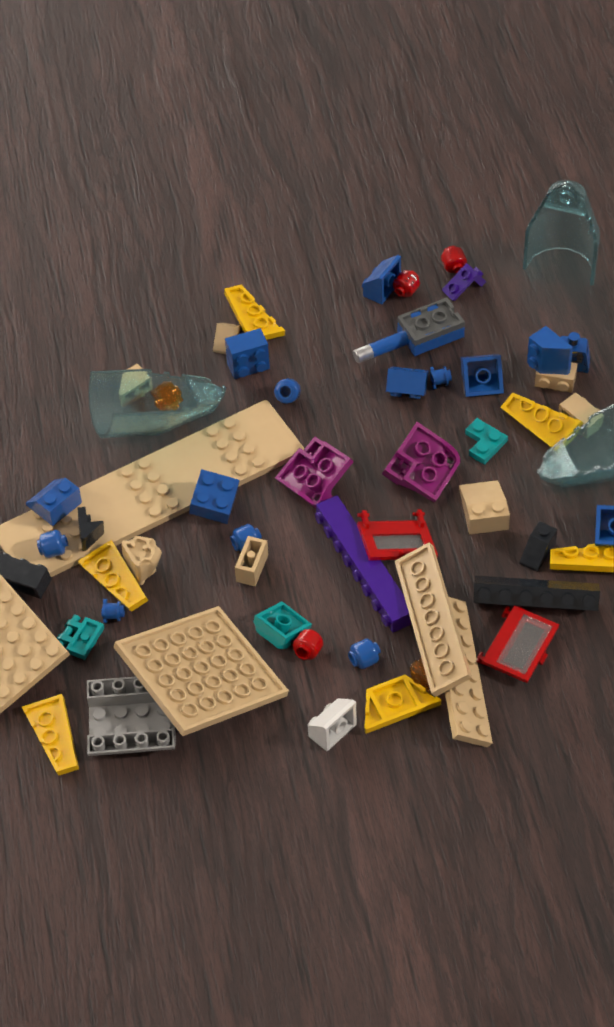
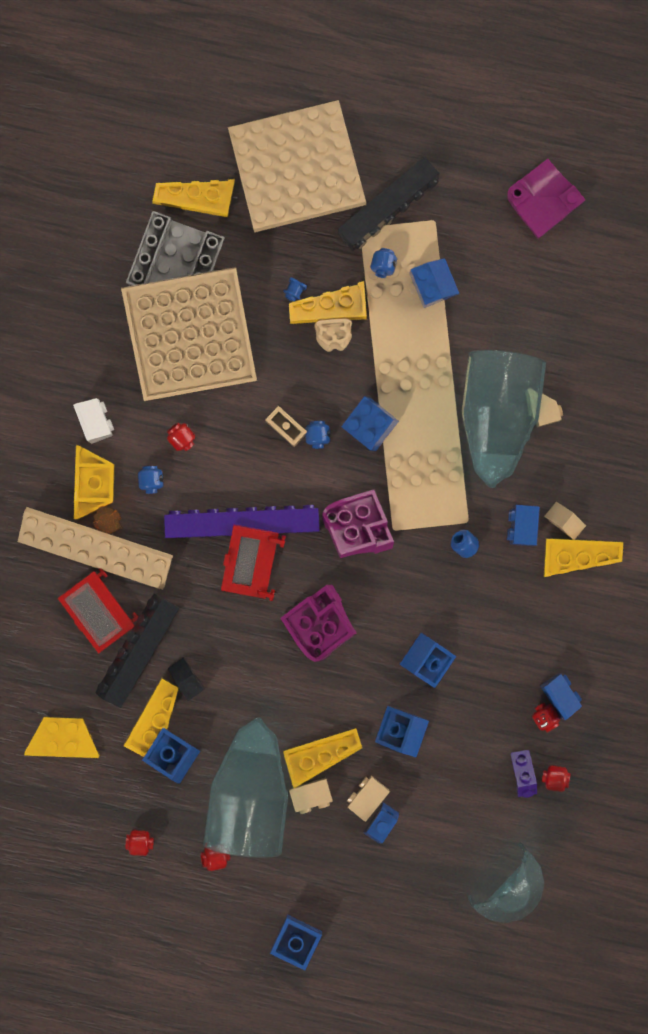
camera: 110 degrees right, 35 degrees up
(84, 638) = (279, 257): teal plate -> none
(89, 531) = (380, 296): black slope -> none
(167, 396) = (505, 429): clear orange brick -> none
(280, 625) = (211, 424): teal slope -> none
(419, 330) = (478, 699): piece -> none
(433, 620) = (142, 545): tan plate -> none
(440, 376) = (417, 692): blue brick -> none
(484, 507) = (255, 657): tan slope -> none
(488, 440) = (326, 701): teal plate -> none
(549, 353) = (377, 794): blue slope -> none

